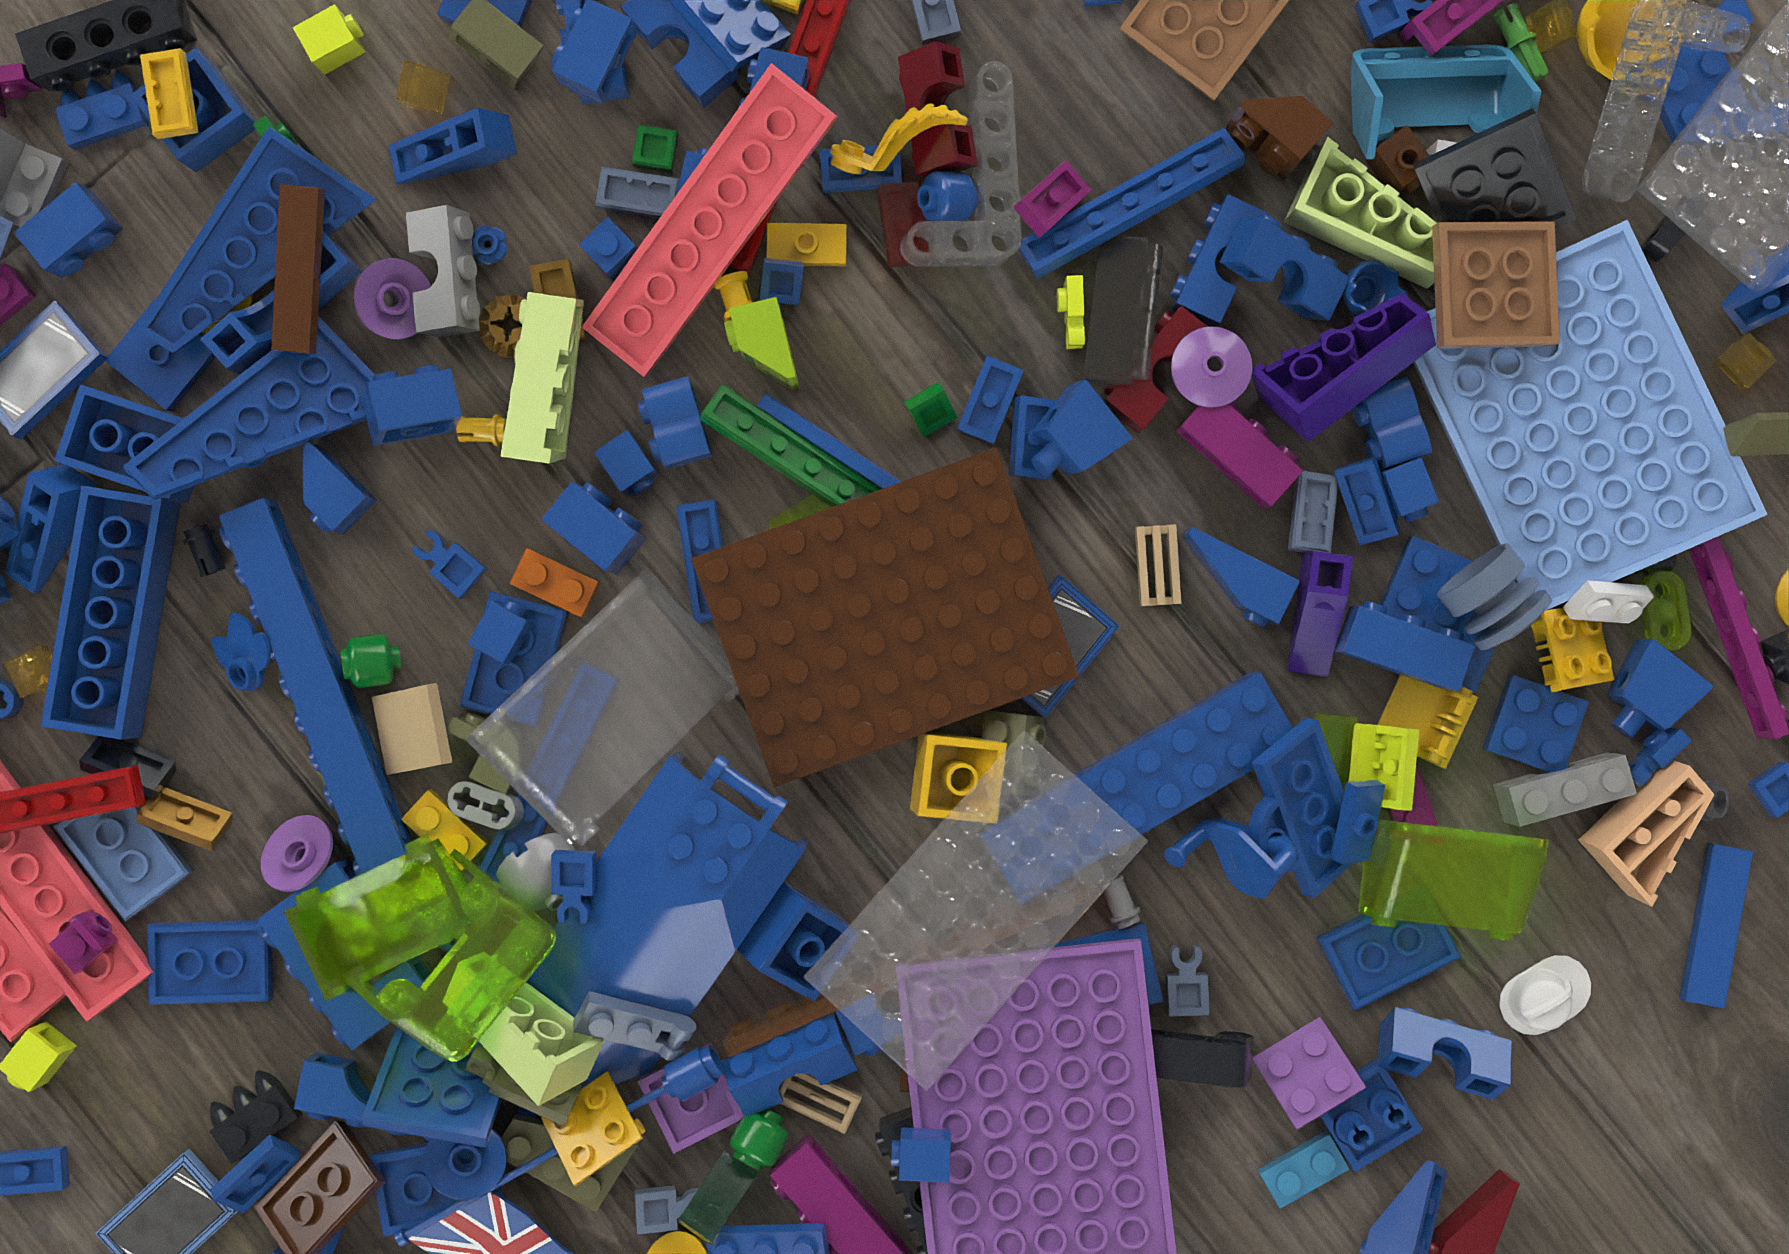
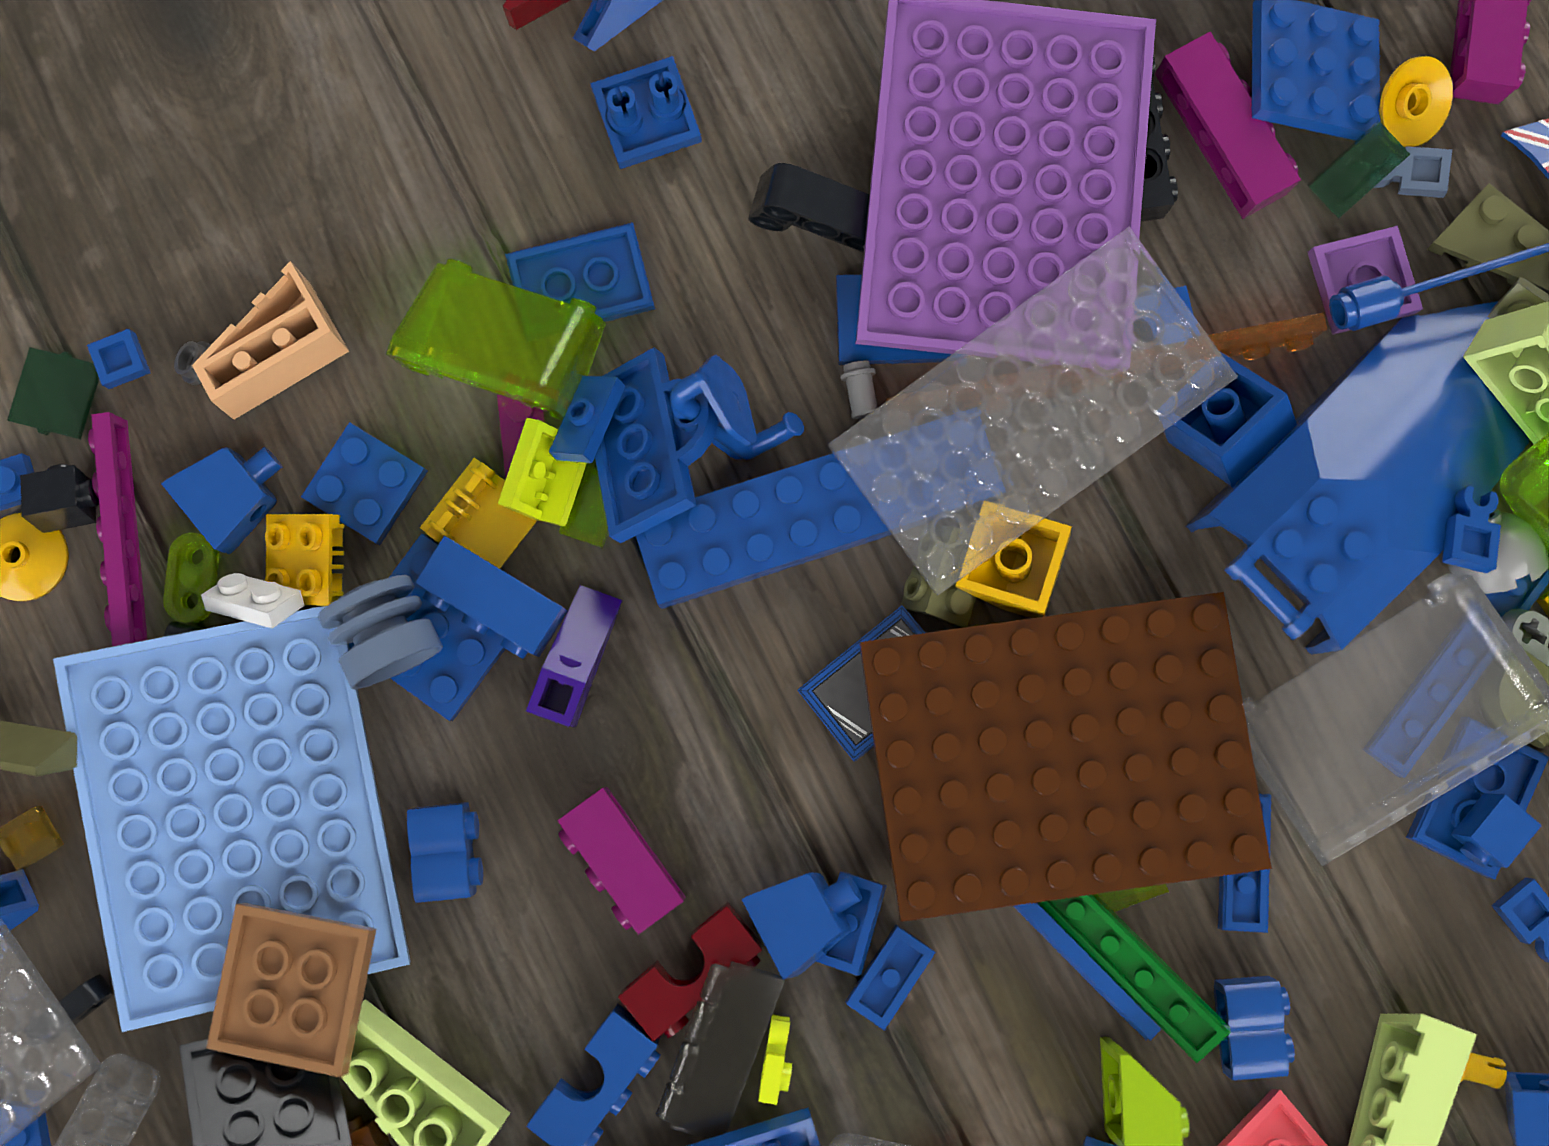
camera: 170 degrees left, 5 degrees down
(555, 582) = (1418, 873): orange plate -> none
(594, 528) = (1371, 927): blue brick -> none
(595, 1129) = (1482, 265): yellow hinge -> none
(627, 464) = (1316, 992): blue brick -> none
(634, 1025) = (1426, 366): sand blue plate -> none
(759, 1139) = (1301, 221): green head -> none
(812, 1049) = (1295, 287): blue arch -> none
(814, 1113) = (1217, 265): tan tile -> none
(922, 1155) = (1142, 161): blue brick -> none
(930, 409) = (960, 980): green plate -> none
(1173, 562) = (734, 787): tan tile -> none
(1187, 989) = (807, 282): sand blue plate -> none
(1194, 377) = (638, 937): medium lavender dish -> none
(1246, 581) = (644, 707): blue slope -> none
(1303, 1169) = (725, 71): dark azure plate -> none
(1308, 1073) = (698, 166): medium lavender plate -> none
(1310, 281) = (497, 1037): blue arch -> none
(1313, 512) = (554, 770): sand blue plate -> none
(1345, 366) = (483, 930): dark purple wedge -> none
(1367, 500) = (491, 770): blue plate -> none
(1370, 286) = (428, 1009): blue hair -> none
(1410, 490) = (444, 772): blue brick -> none
(1477, 1056) = (515, 147): arch -> none
(1545, 995) = (423, 196): white piece -> none
(1565, 791) = (328, 406): light grey arch -> none
(1658, 751) = (239, 425): blue plate -> none
(1716, 925) = (223, 231): blue tile -> none

